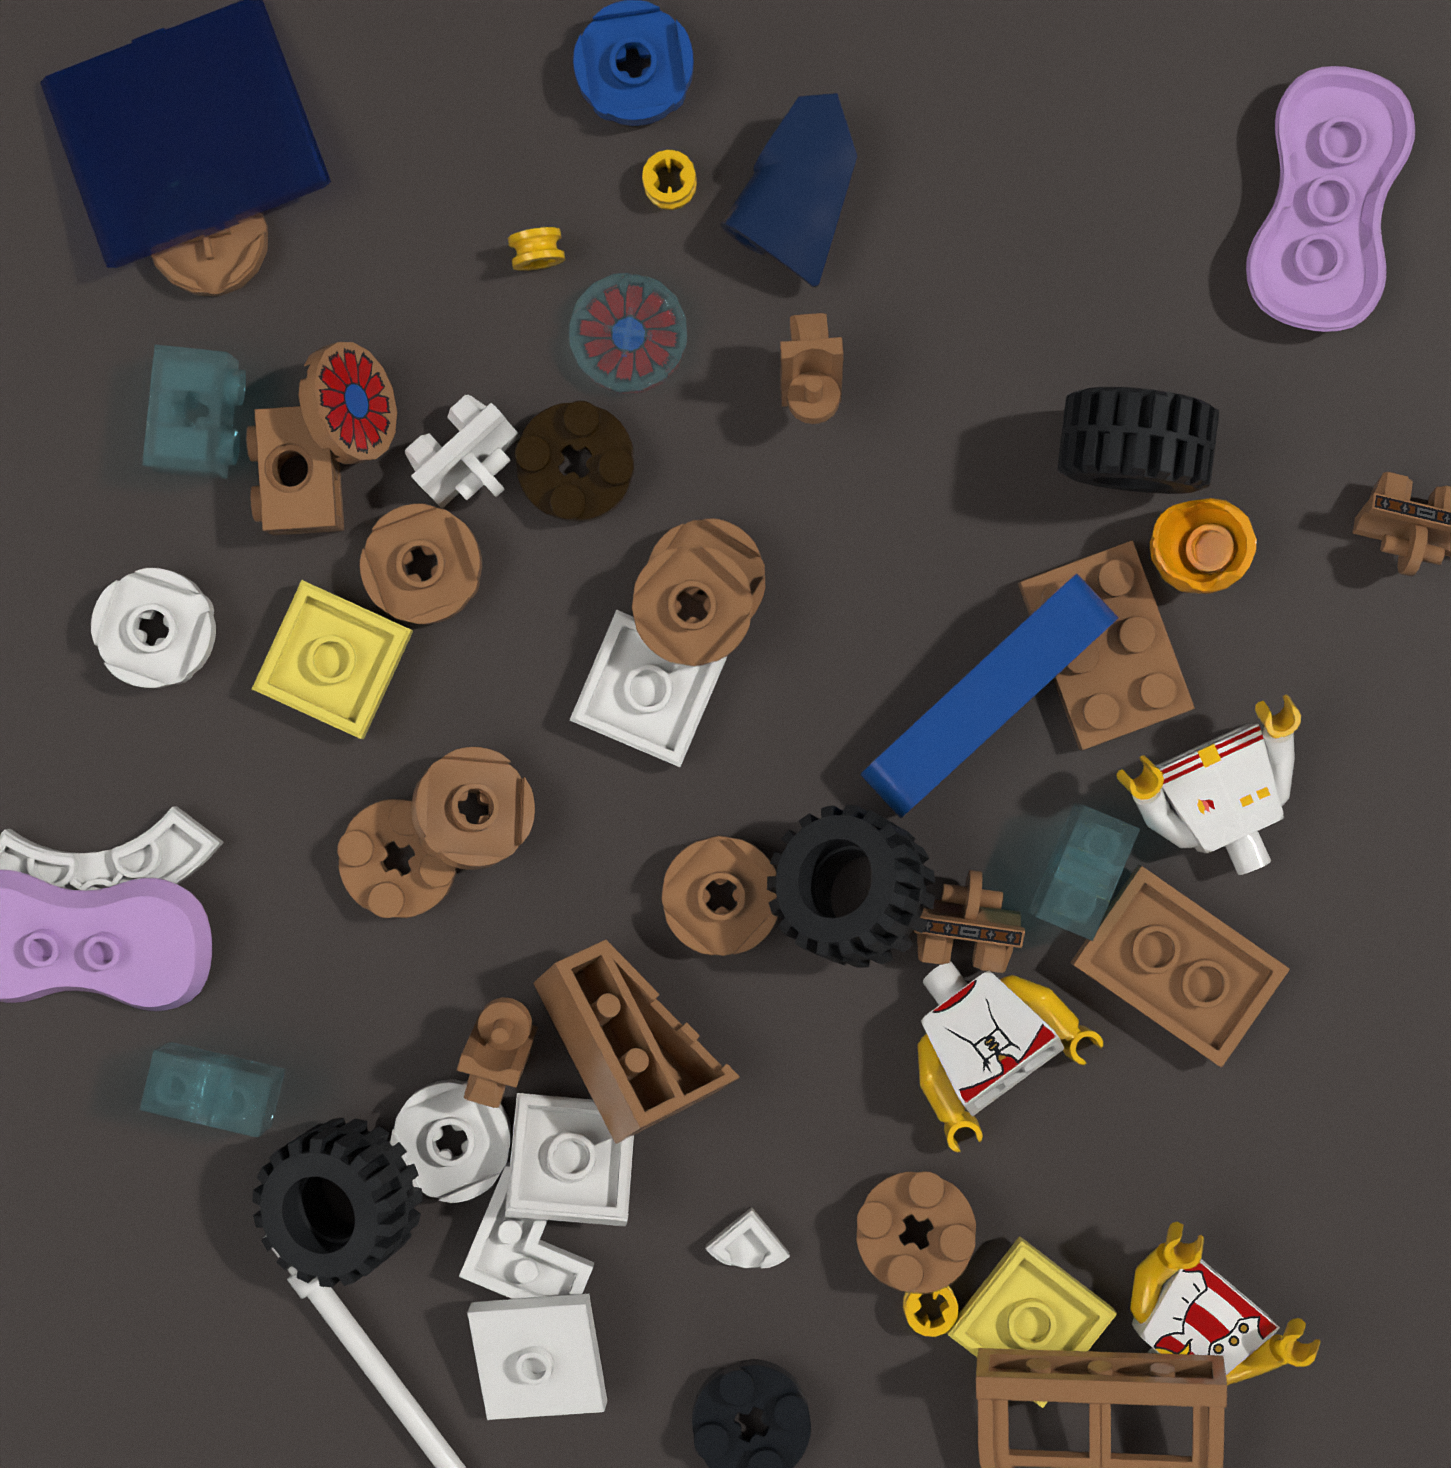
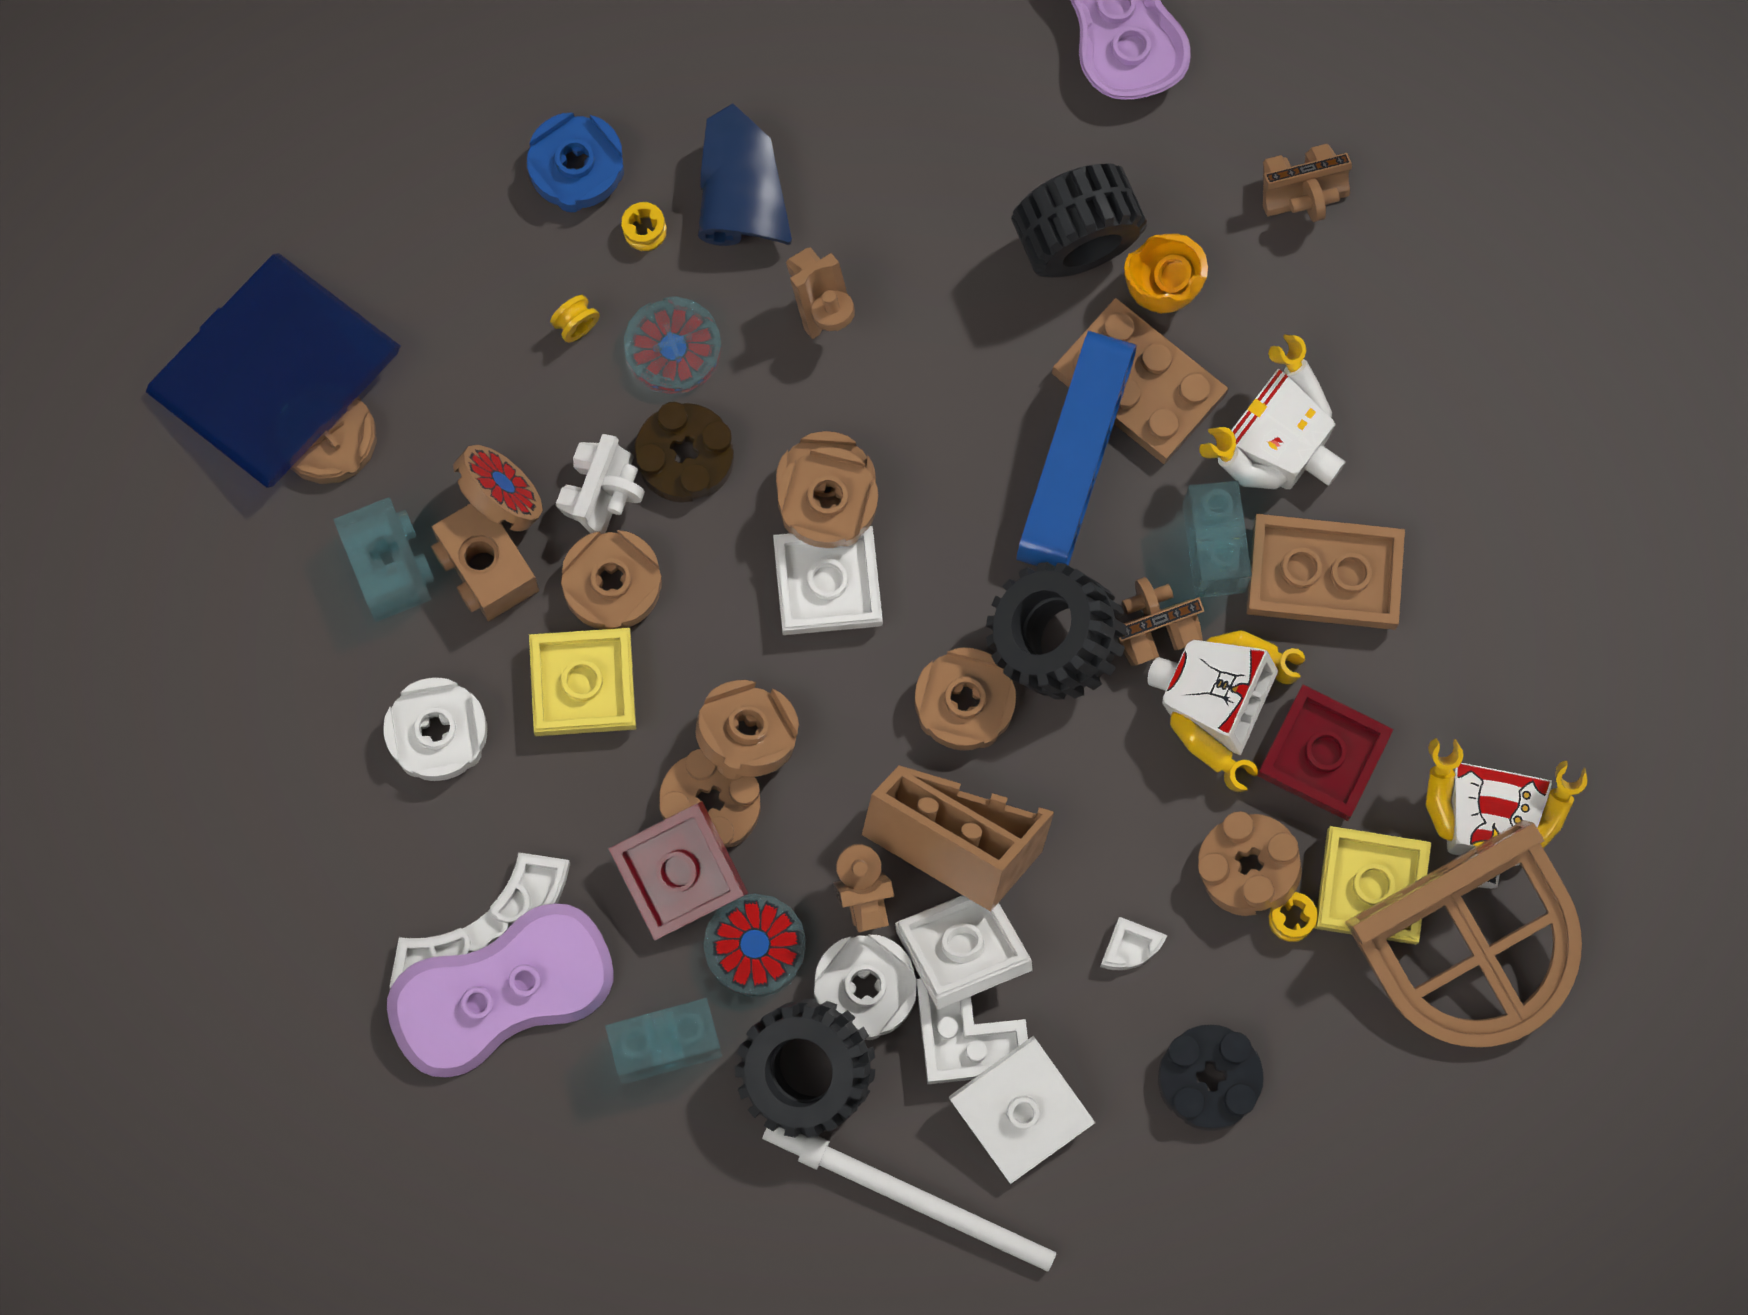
camera: 30 degrees left, 15 degrees down
(321, 921) = (678, 870): none -> plate
(363, 1034) = (755, 945): none -> tile
(1064, 1157) = (1325, 752): none -> dark red plate

